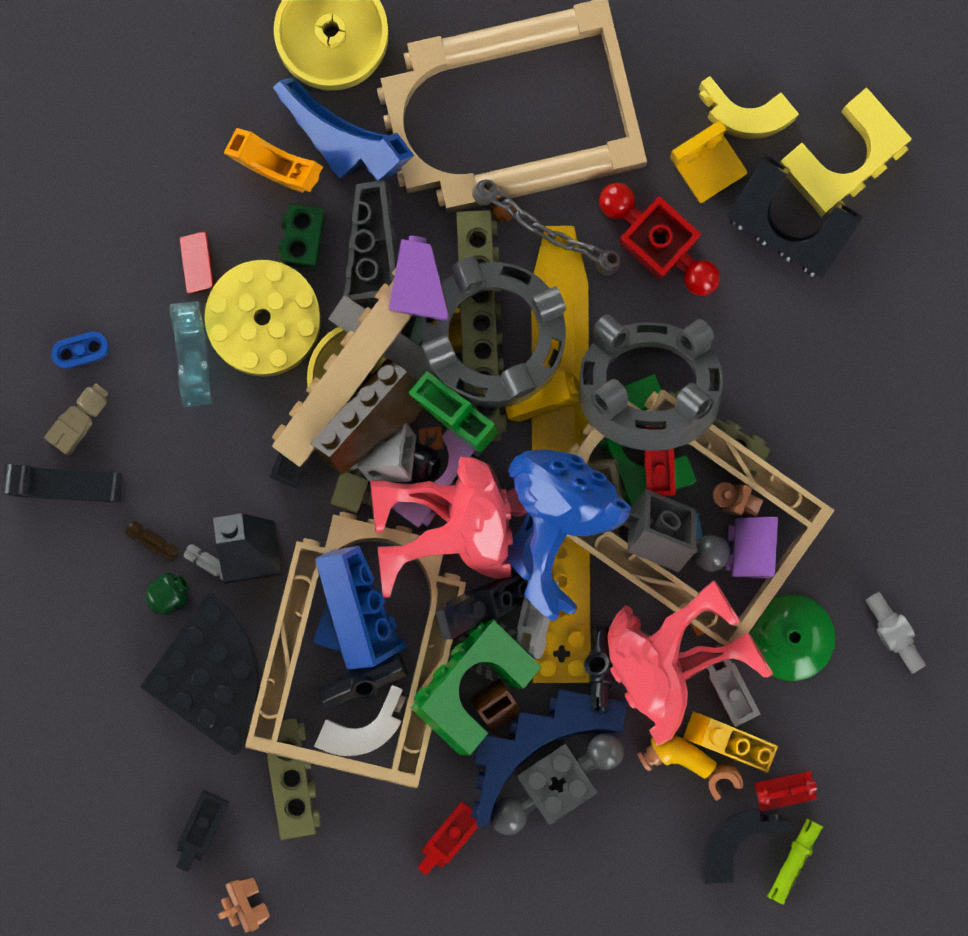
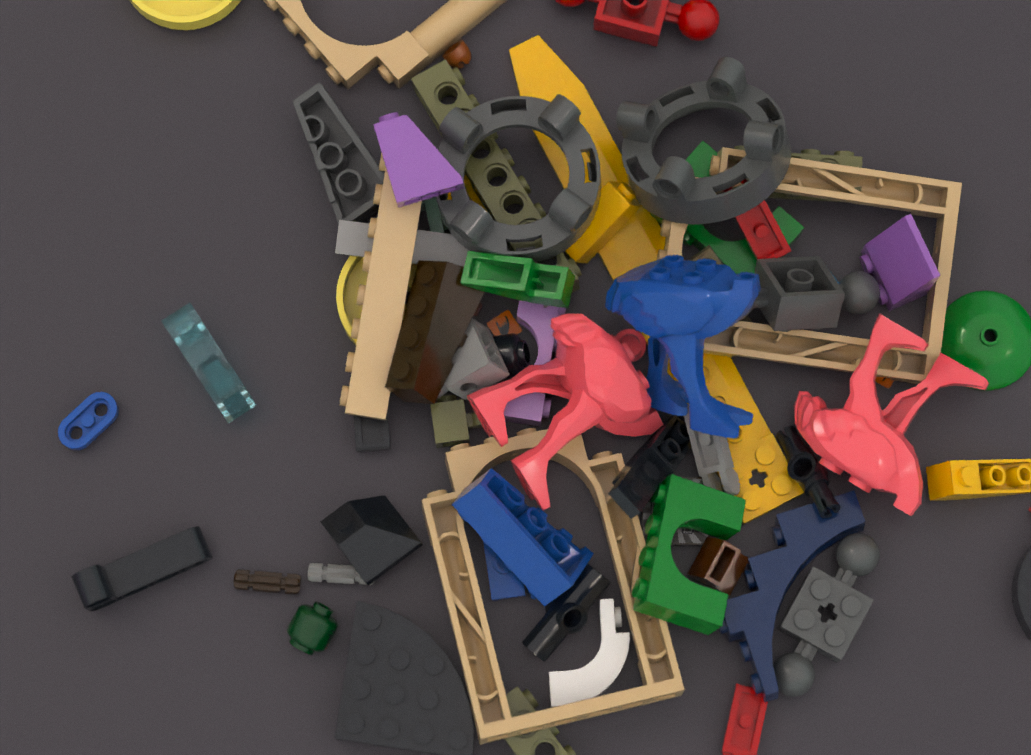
camera: 25 degrees left, 5 degrees down
(76, 421) = (122, 496): dark tan piece -> none
(197, 263) = (165, 269): slope -> none
(245, 294) = (269, 324): light yellow piece -> none
(273, 162) = (193, 126): light orange arch -> none
(309, 237) = (268, 183): dark green brick -> none
(340, 142) = (253, 69): arch -> none
(602, 264) = (431, 43): flat silver piece -> none
(691, 757) = (938, 515): piece -> none
(733, 692) = (956, 426): light grey hinge -> none
(736, 499) = (855, 225): nougat hips -> none

